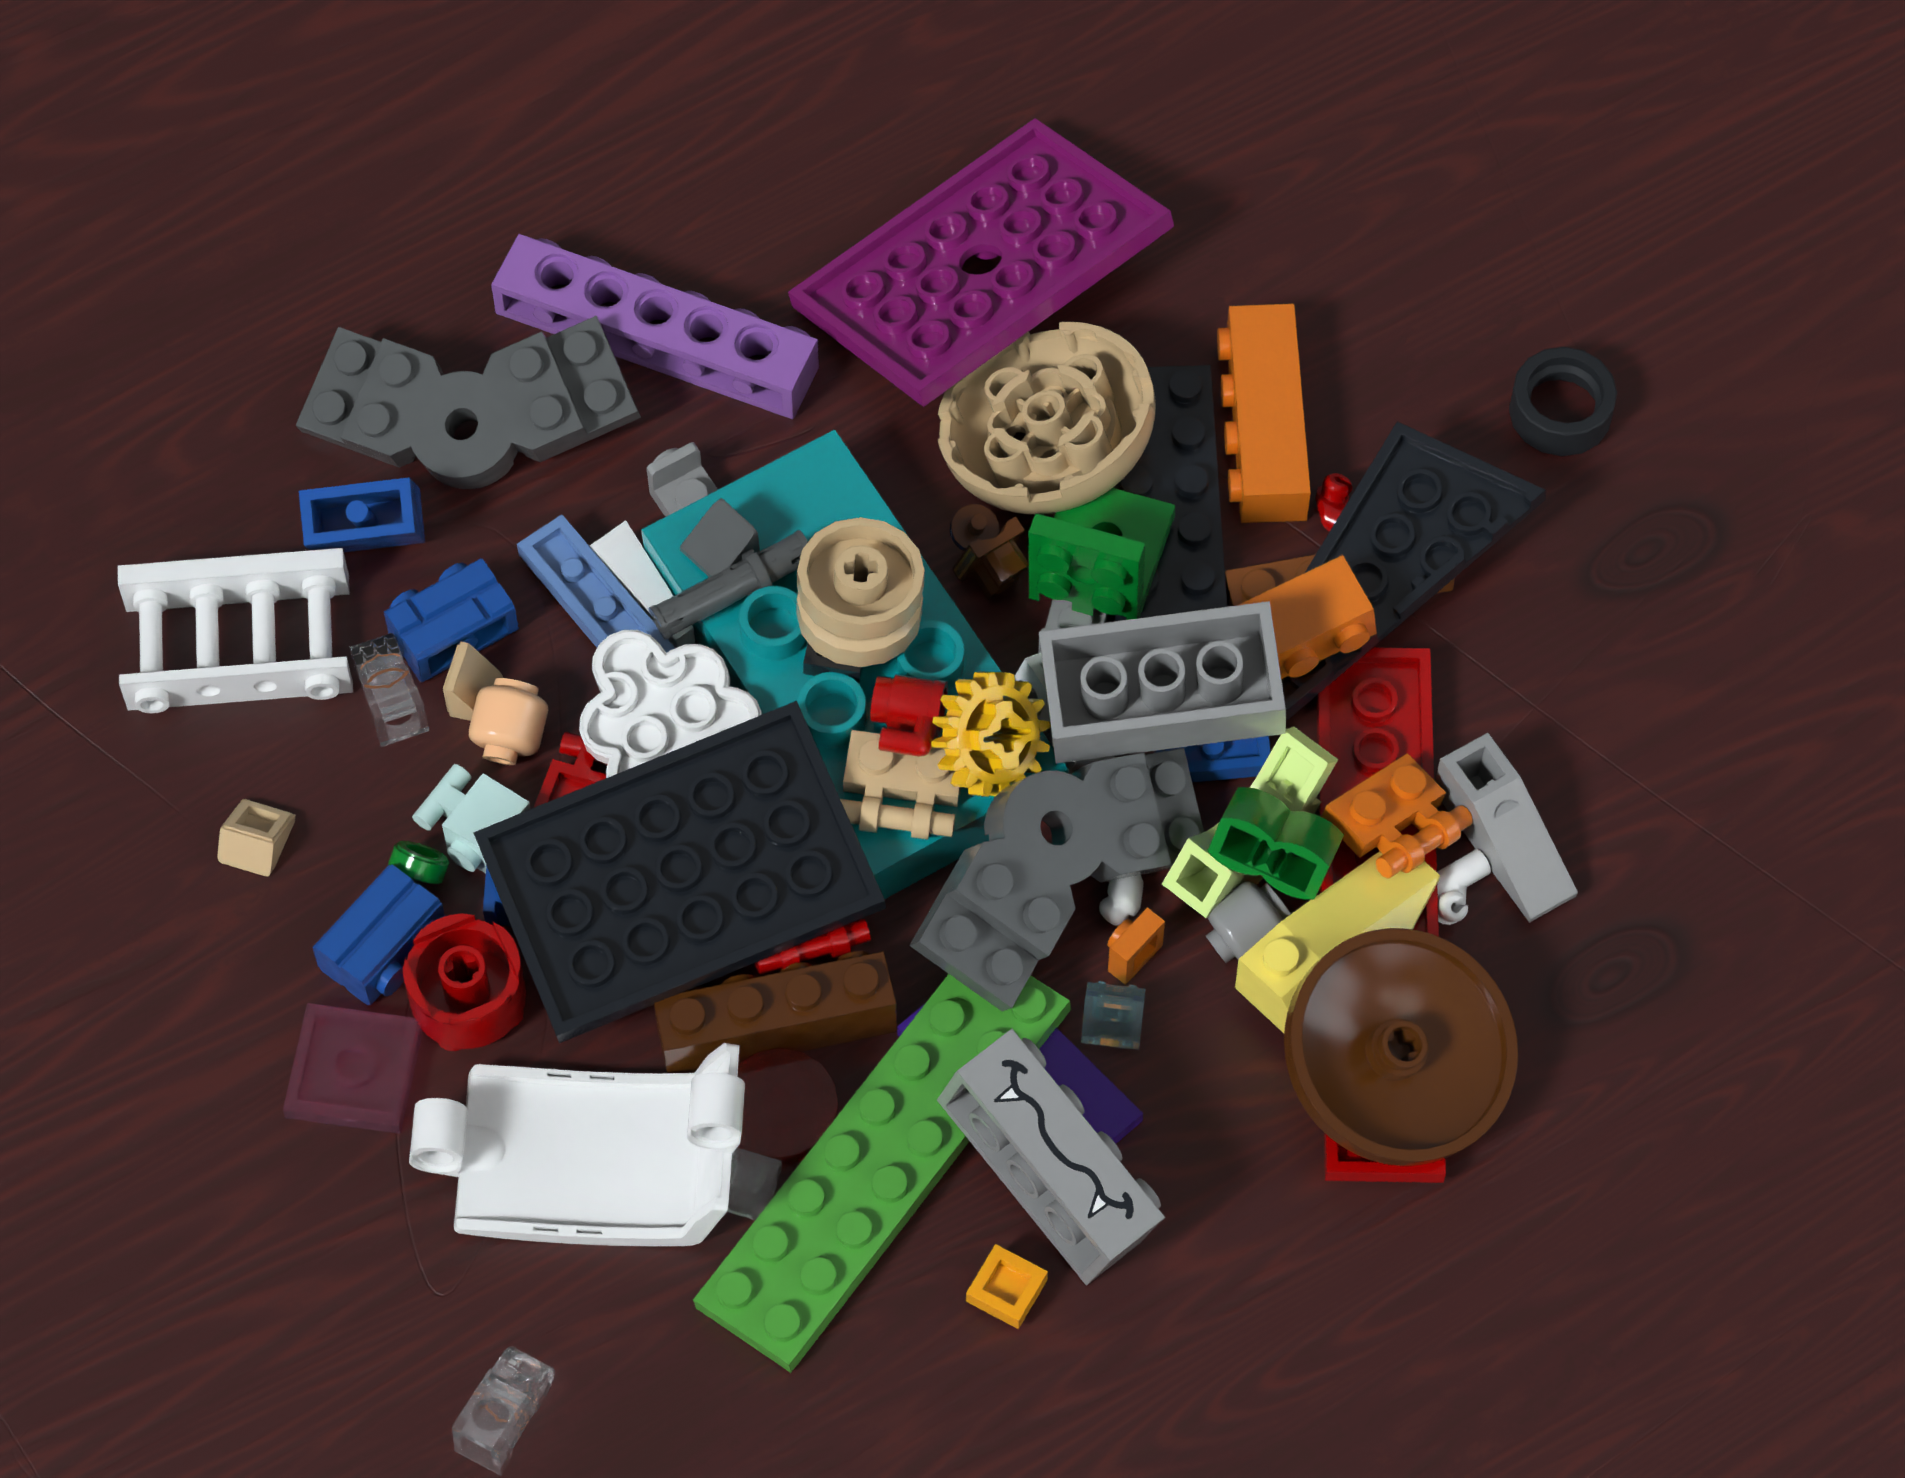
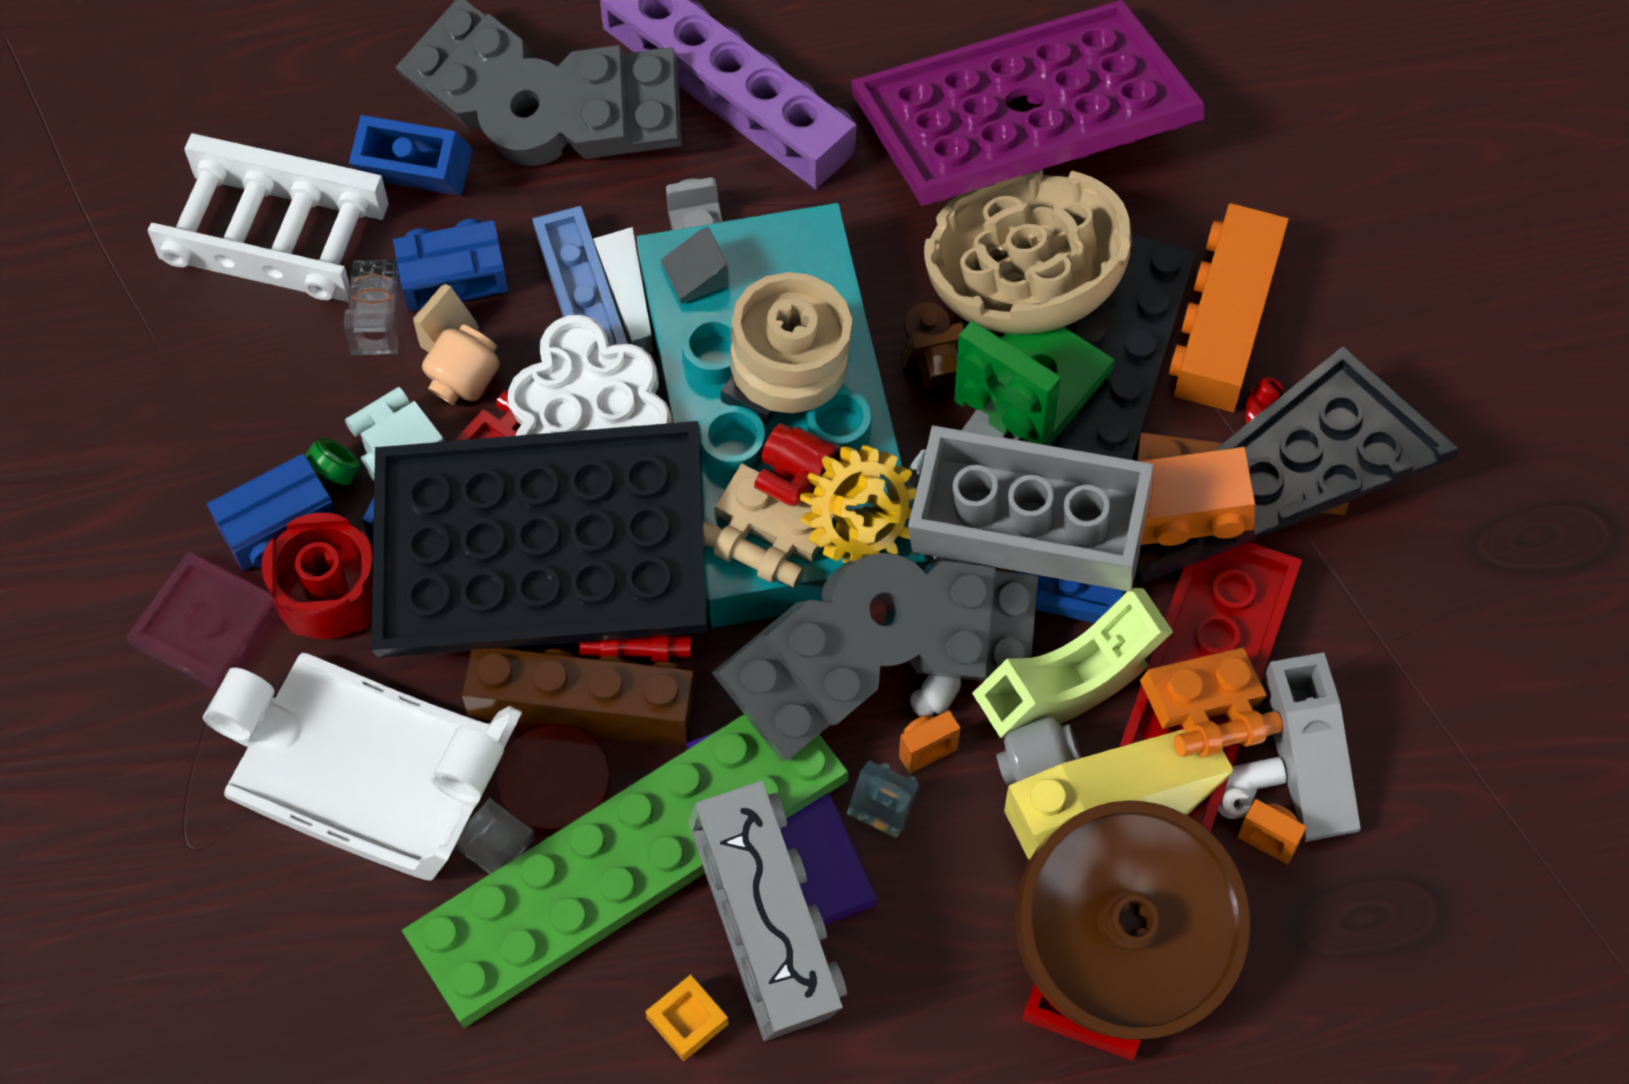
camera: 20 degrees right, 0 degrees up
(254, 837) = (210, 395): tan slope -> none
(501, 1409) = (191, 970): clear leg -> none
(729, 585) = (677, 306): dark grey pin -> none
(1279, 844) = (1089, 693): green brick -> none
(1496, 921) = (1272, 830): none -> orange plate
(1569, 366) = (1521, 348): black tyre -> none

